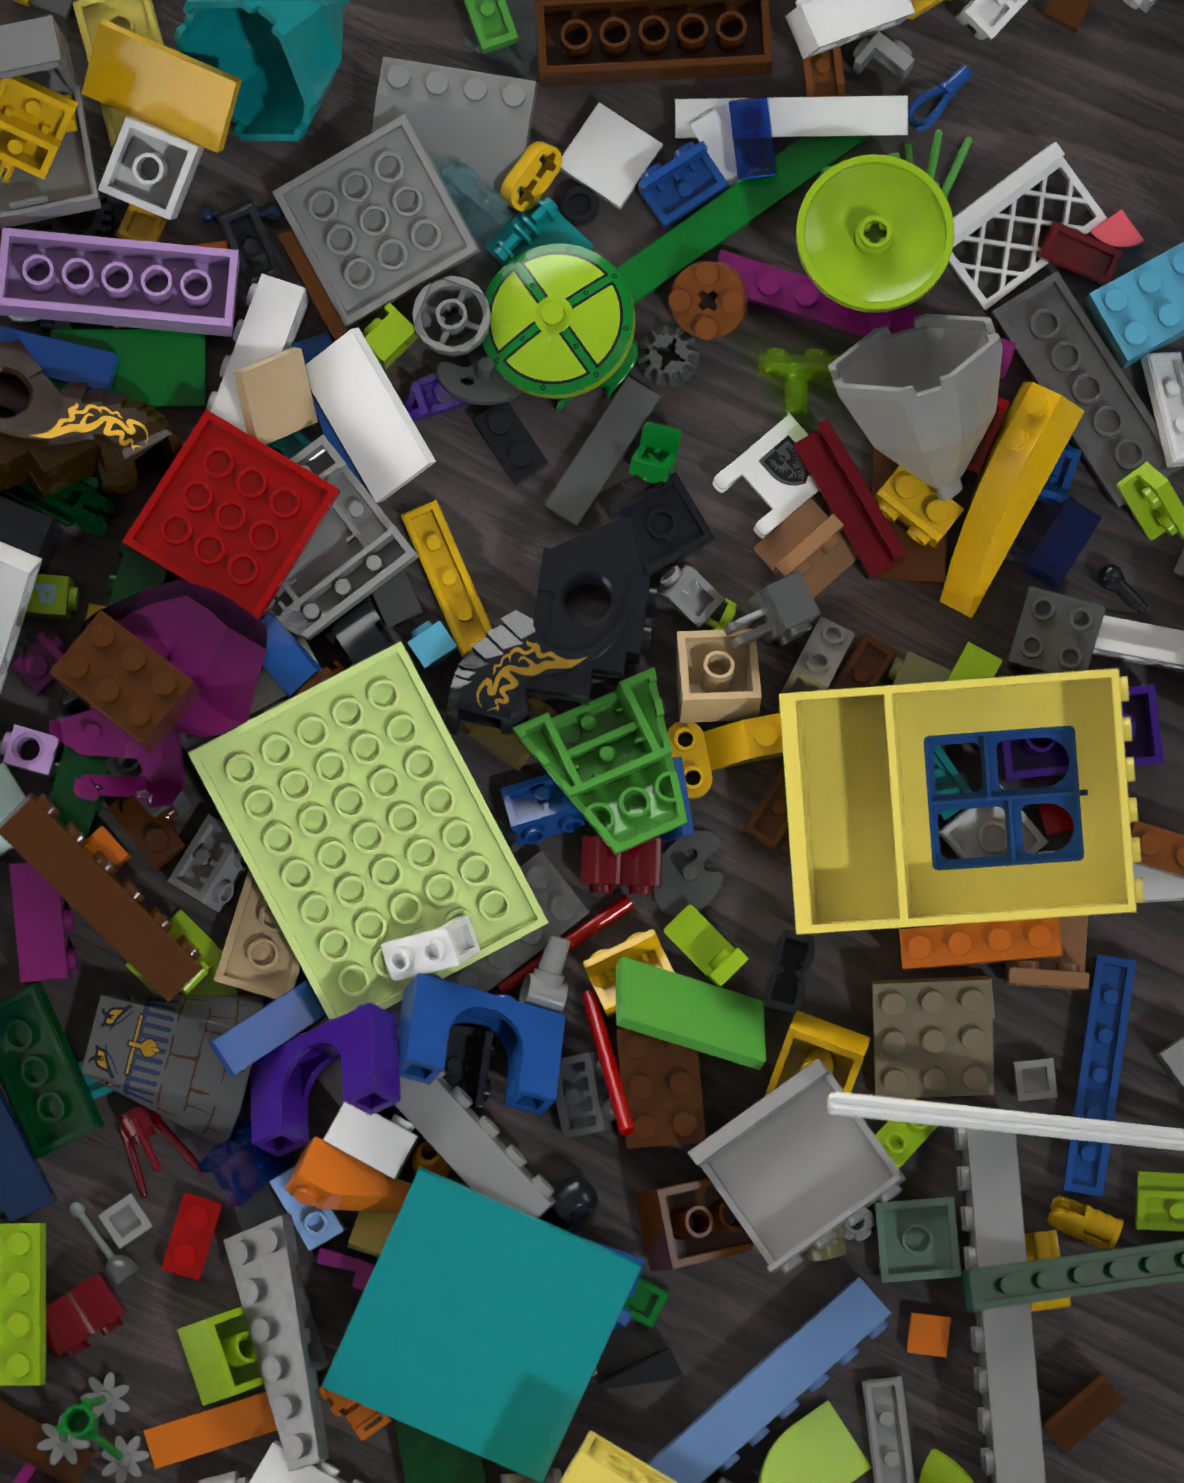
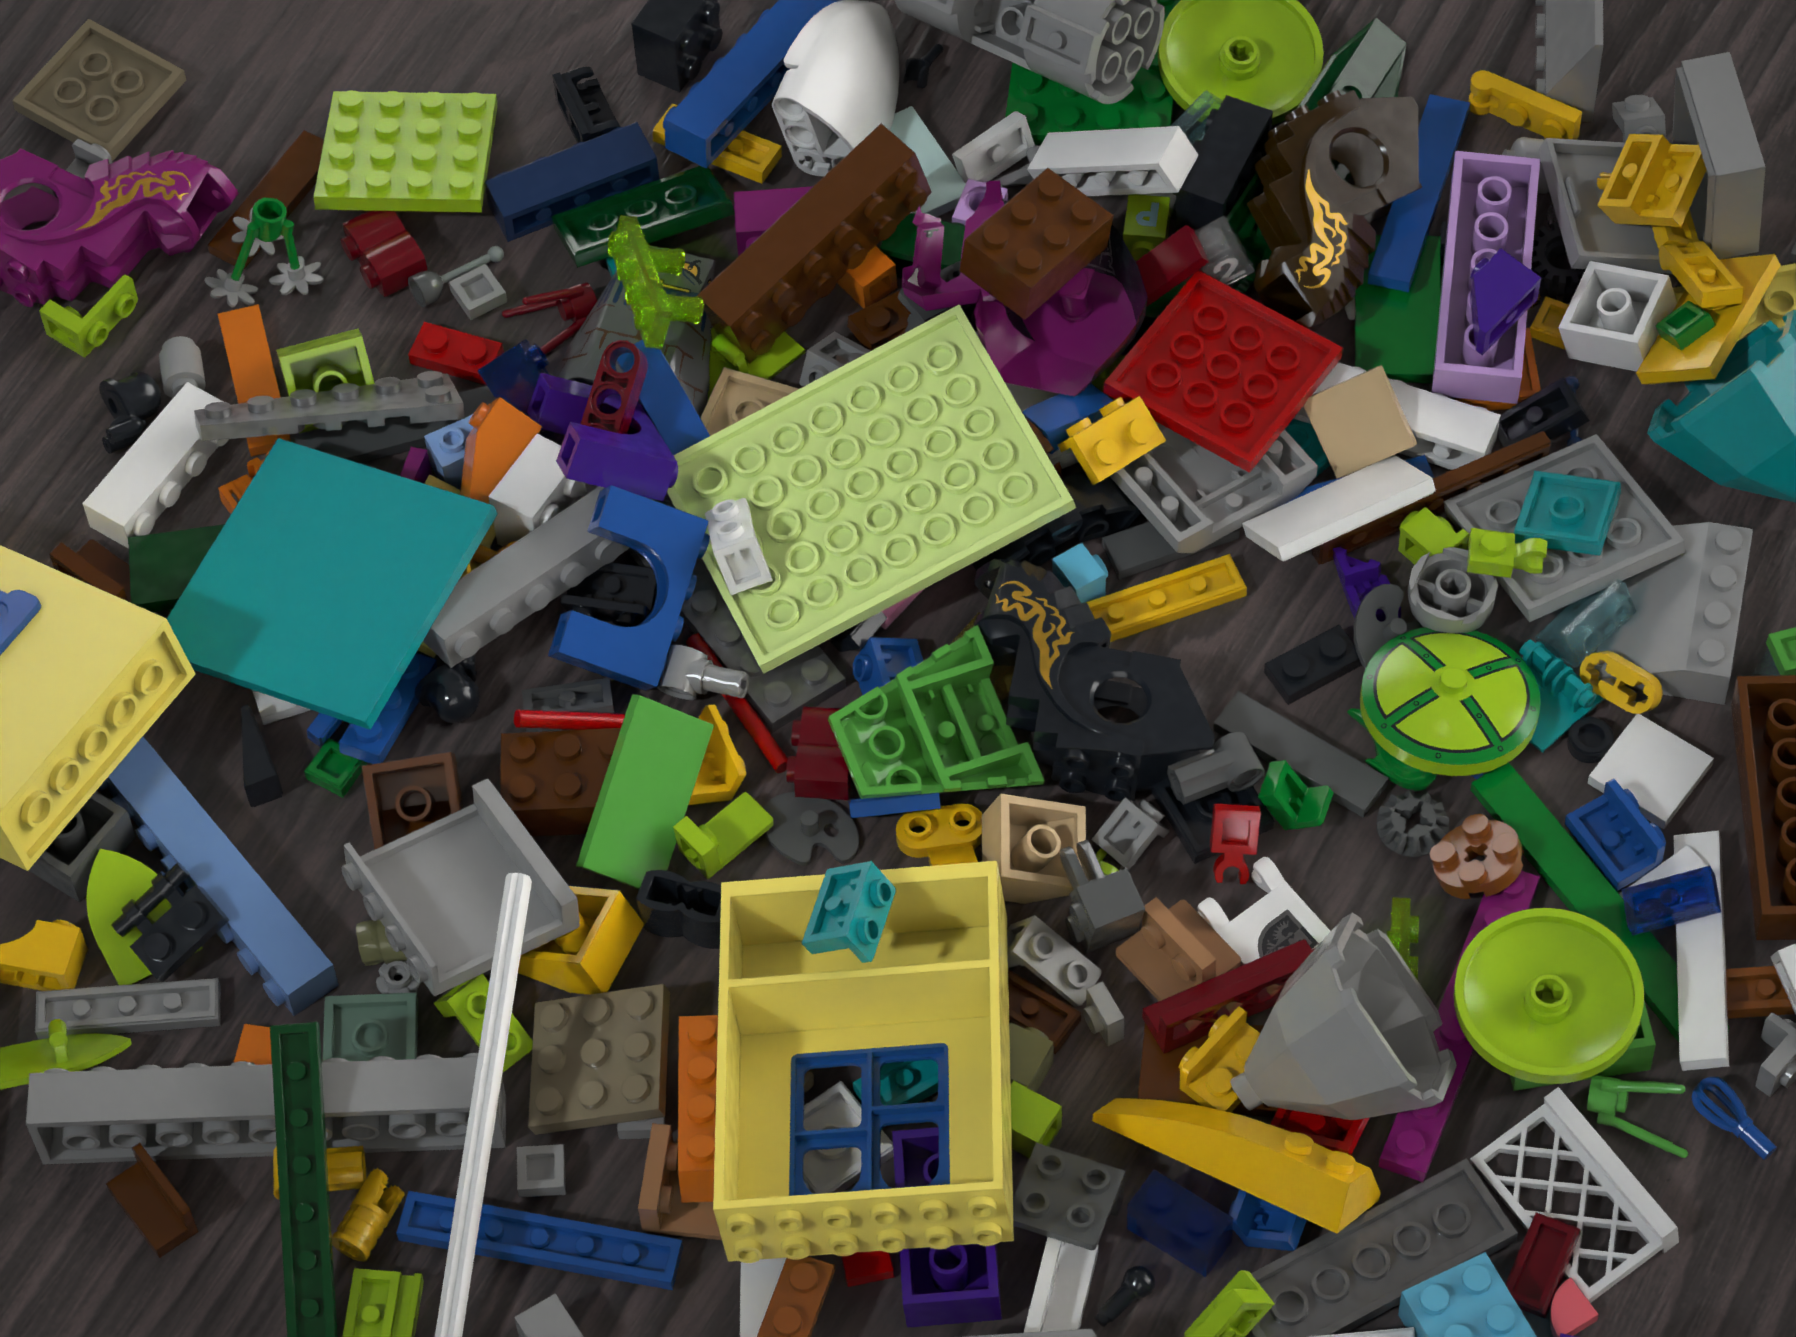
camera: 95 degrees right, 25 degrees down
(98, 521) = (1224, 252): none -> clear brick
(119, 89) = (1701, 274): none -> yellow plate
(120, 564) = (1171, 263): none -> dark red tile
(165, 266) = (1500, 296): none -> dark purple slope
(166, 1051) = (638, 270): none -> clear neon green plate
(175, 105) = (1685, 325): none -> green tile
(277, 1070) = (610, 382): none -> dark red beam
(313, 614) = (1113, 440): none -> yellow bracket
(370, 215) = (1568, 512): none -> teal tile
(422, 275) = (1498, 554): none -> lime plate
(638, 504) = (1226, 765): none -> dark grey piece
(701, 503) = (1234, 834): none -> red plate
(834, 1421) = (179, 931): none -> black plate
(842, 816) = (850, 911): none -> teal bracket
(870, 612) = (1103, 1014): none -> light grey plate

